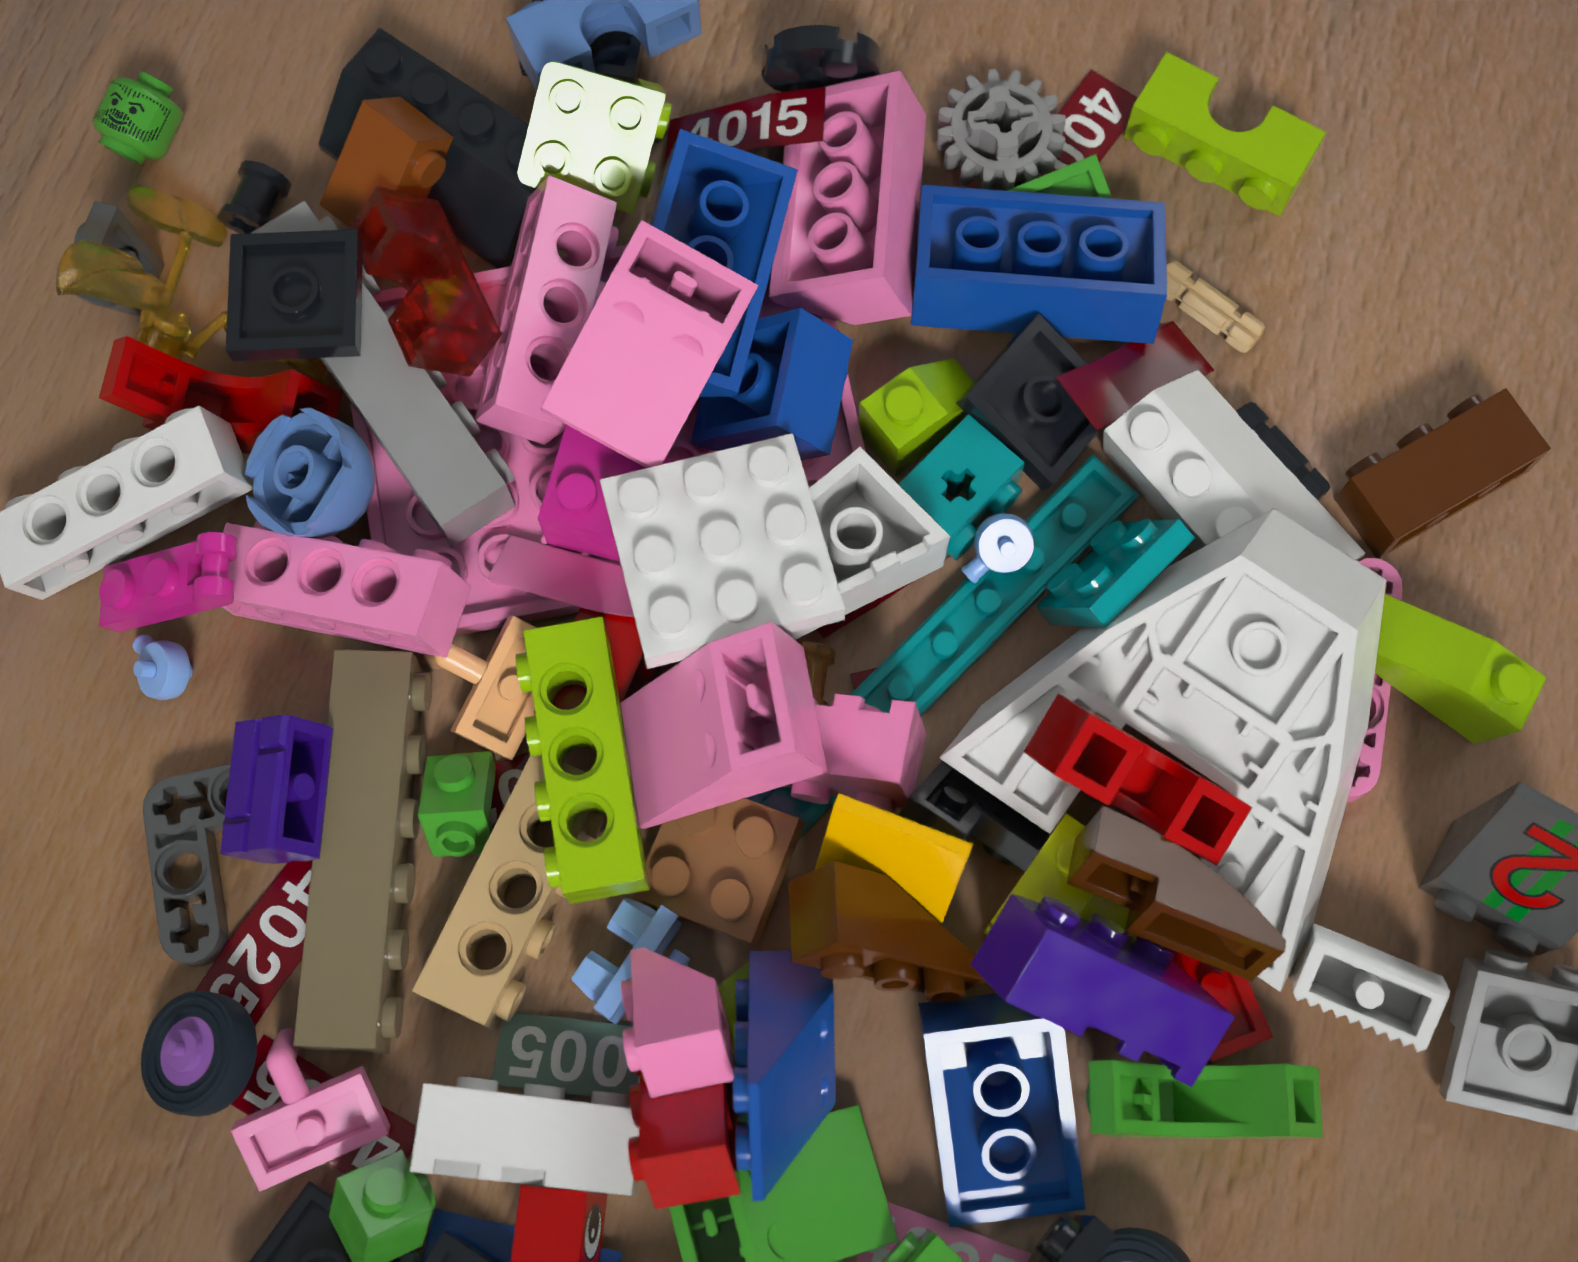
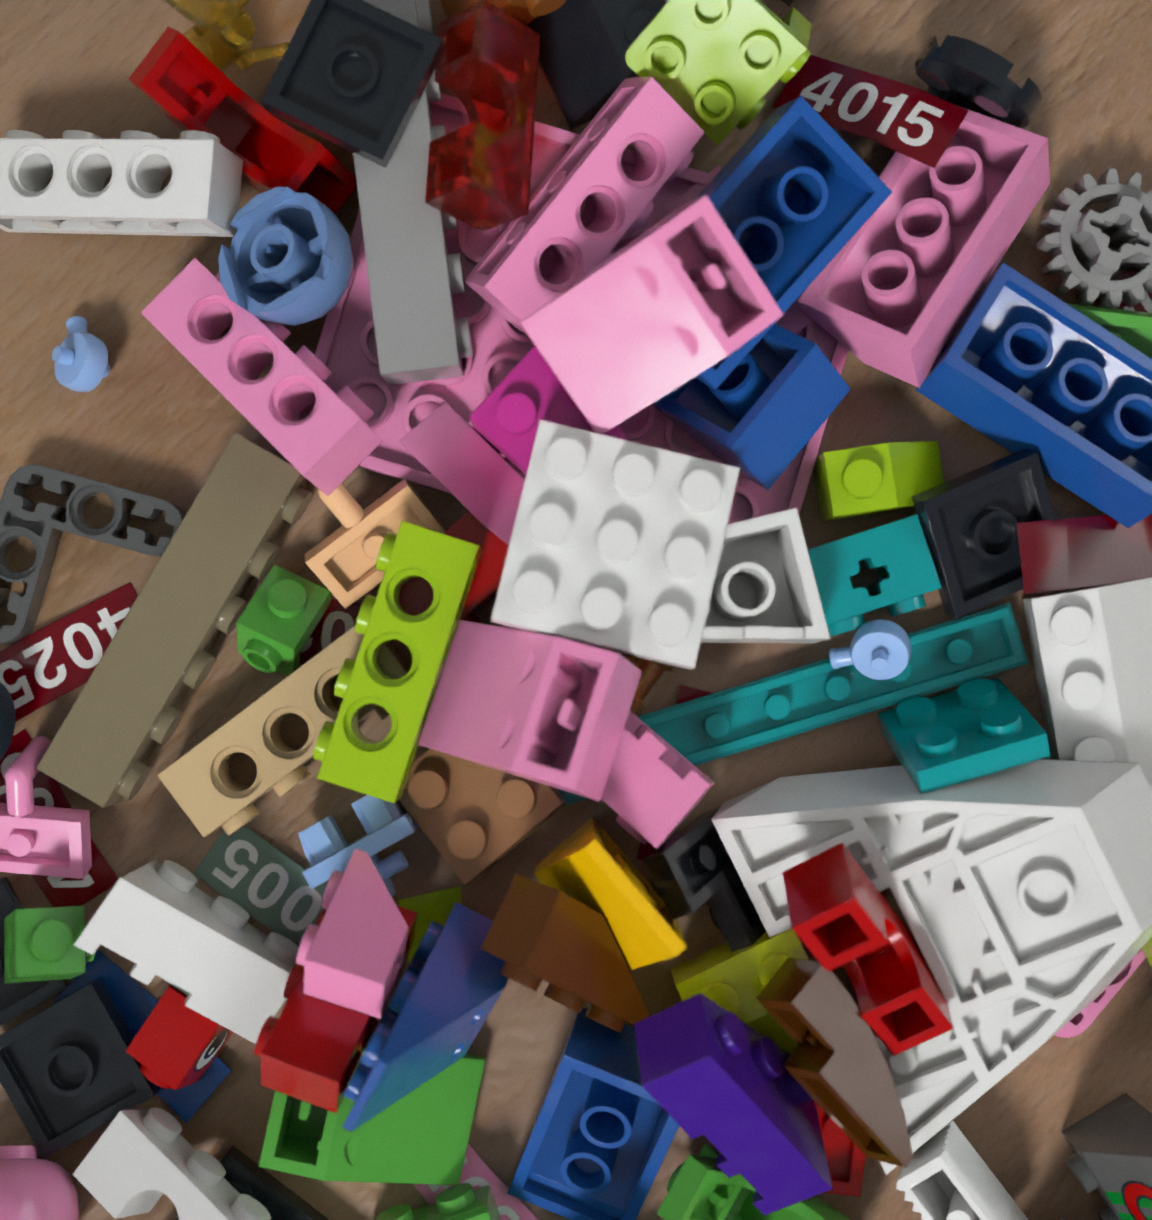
camera: 25 degrees right, 15 degrees up
(168, 583) = (117, 288): dark pink plate -> none
(277, 790) = (122, 540): dark purple brick -> none

